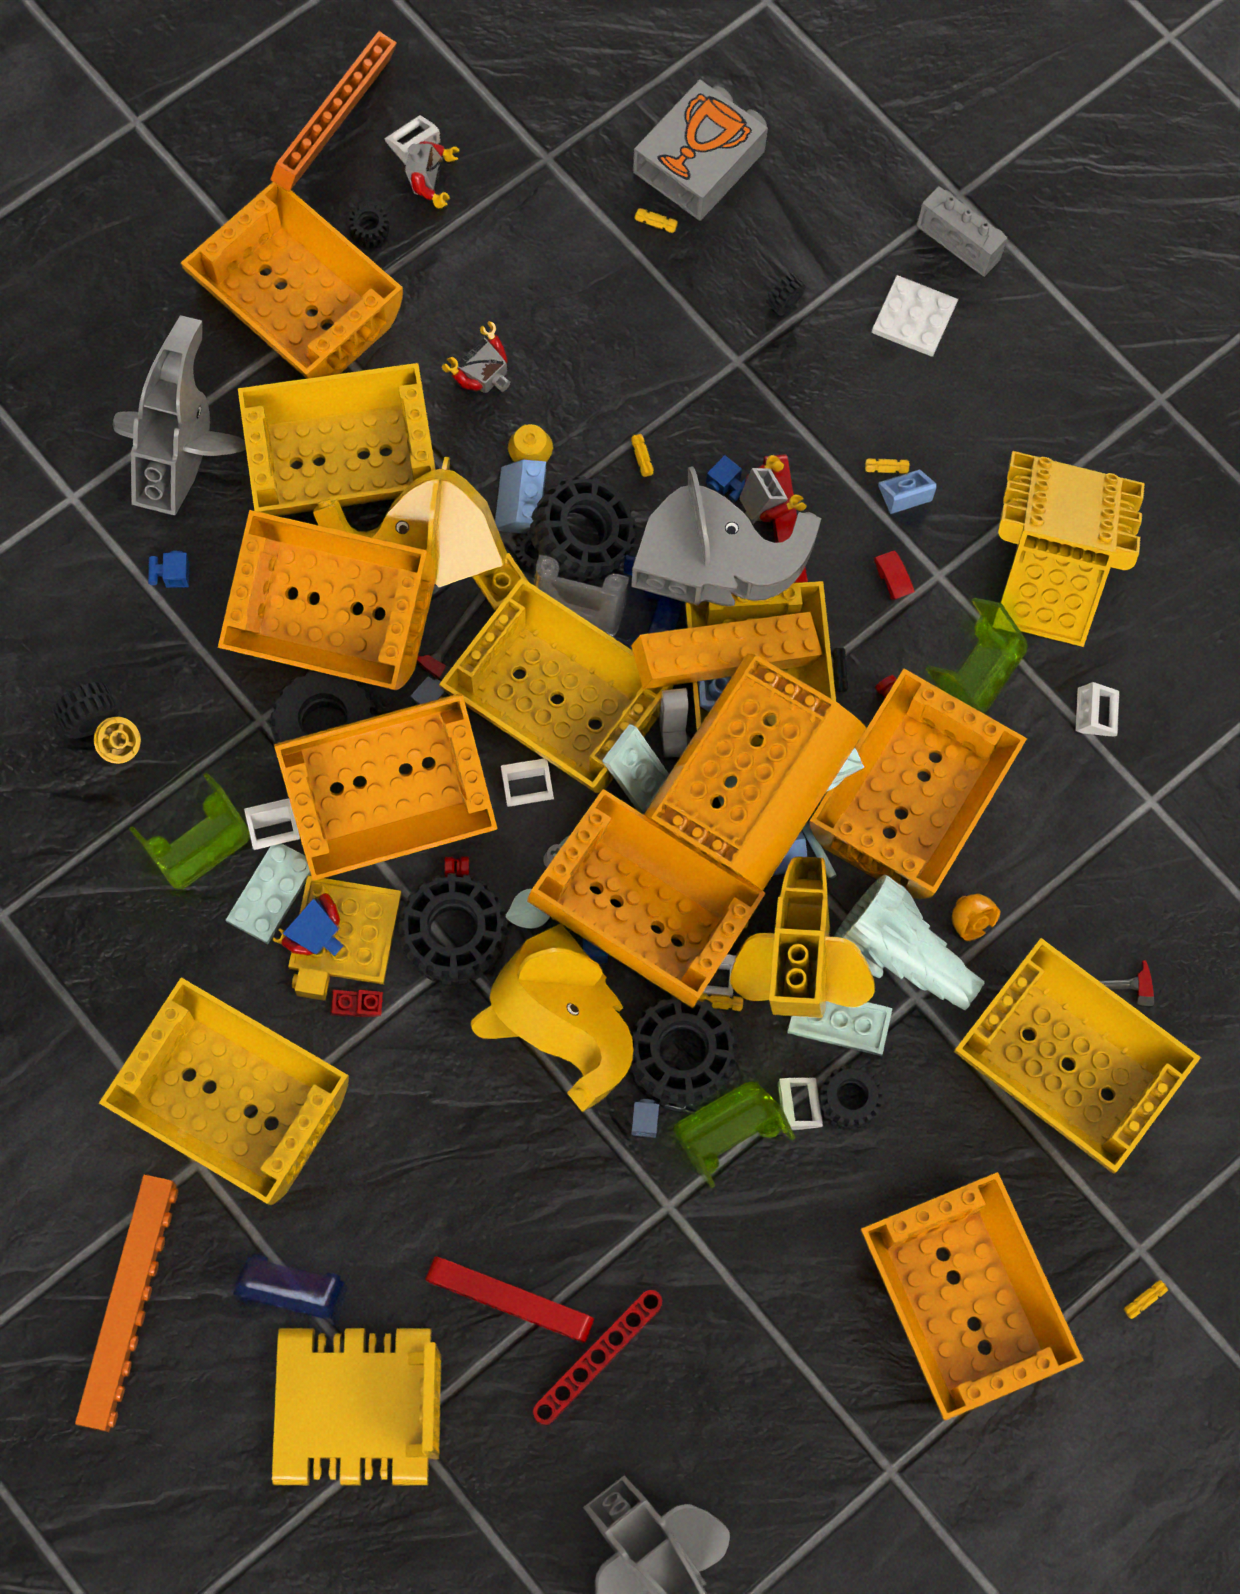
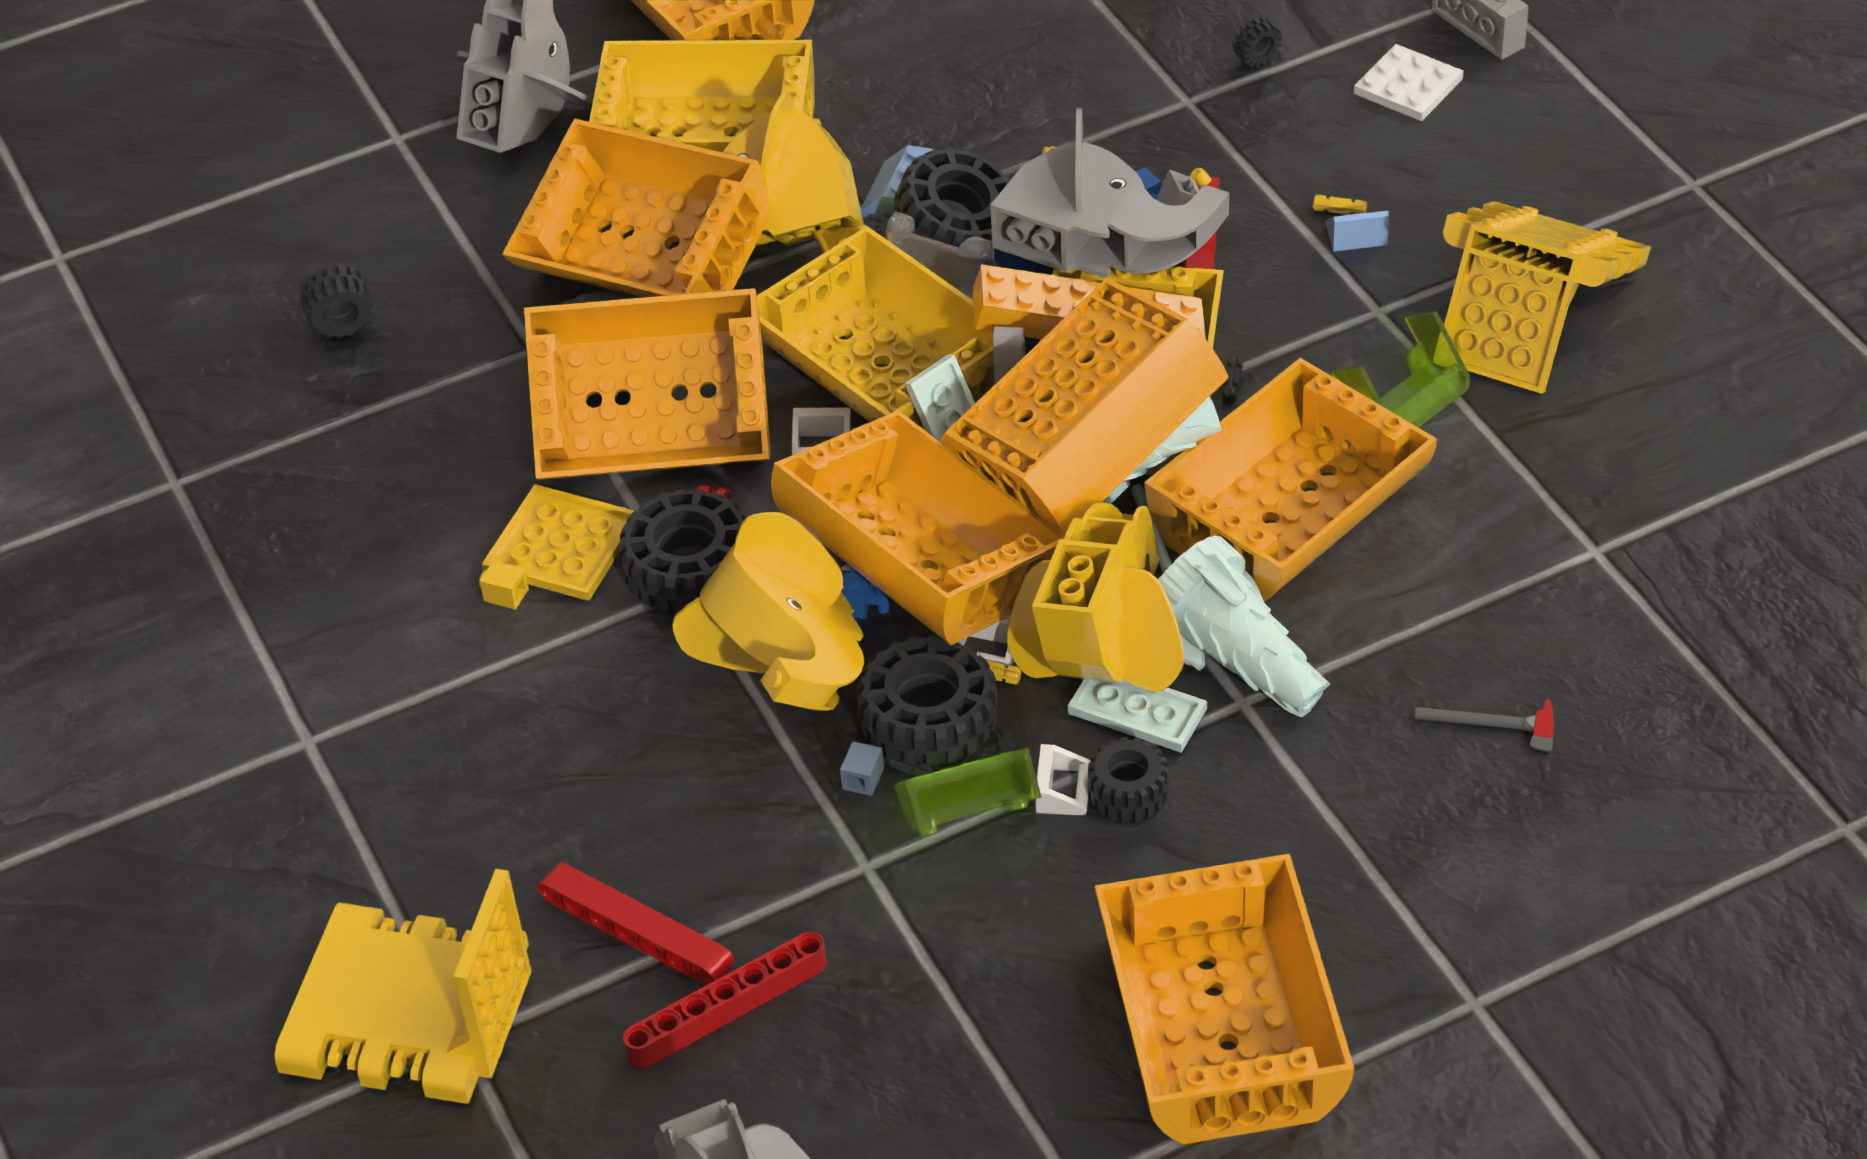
camera: 20 degrees right, 25 degrees down
(117, 740) = (362, 334): yellow cone -> none
(126, 1304) = (168, 859): orange brick -> none
(174, 569) = (483, 205): blue brick -> none
(202, 845) = (453, 438): clear neon green windscreen -> none
(250, 1070) = (395, 634): yellow slope -> none
(268, 815) = (505, 427): white tile -> none
(270, 892) = (485, 500): light aqua plate -> none
(291, 1289) = (371, 850): clear blue windscreen -> none
(314, 927) = (520, 523): blue torso -> none
(356, 1004) = (548, 615): red slope -> none
(483, 365) = (889, 71): torso -> none
(530, 443) = (923, 133): yellow cone -> none
(895, 574) = (1322, 300): red slope -> none
(973, 915) = (1336, 623): light orange cylinder -> none
(1088, 710) = (1528, 460): white tile -> none
(1099, 1033) = (1437, 735): yellow slope -> none
(1145, 1299) = (1468, 1053): yellow axle -> none

